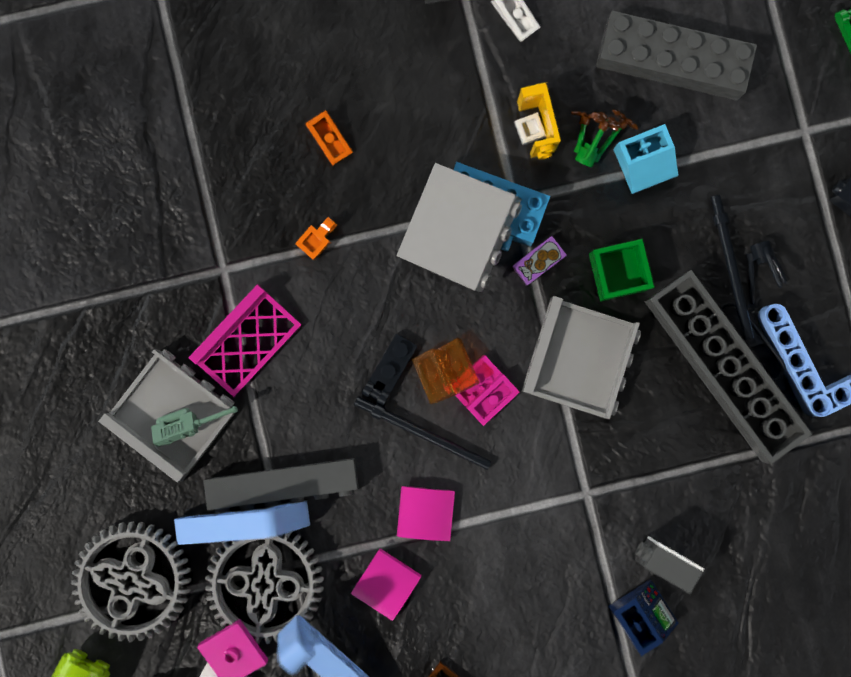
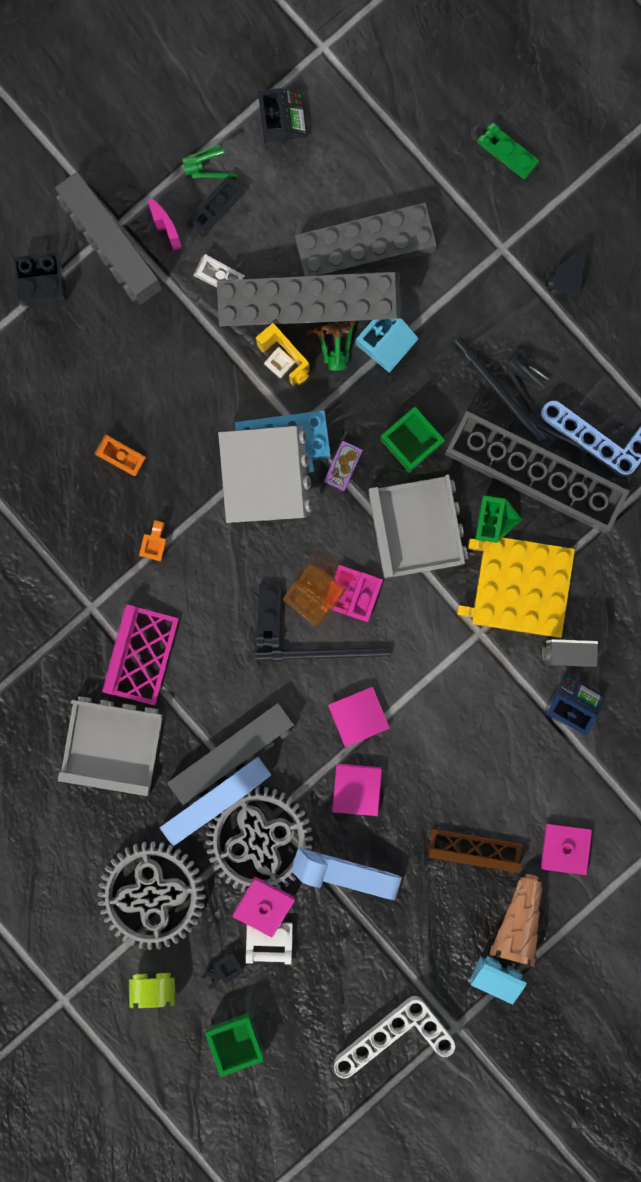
camera: 30 degrees left, 0 degrees up
(181, 425) = (125, 749): sand green piece -> none
(595, 78) = (309, 299): none -> dark grey brick
(652, 470) = (521, 586): none -> yellow plate
(661, 390) = (495, 519): none -> green slope

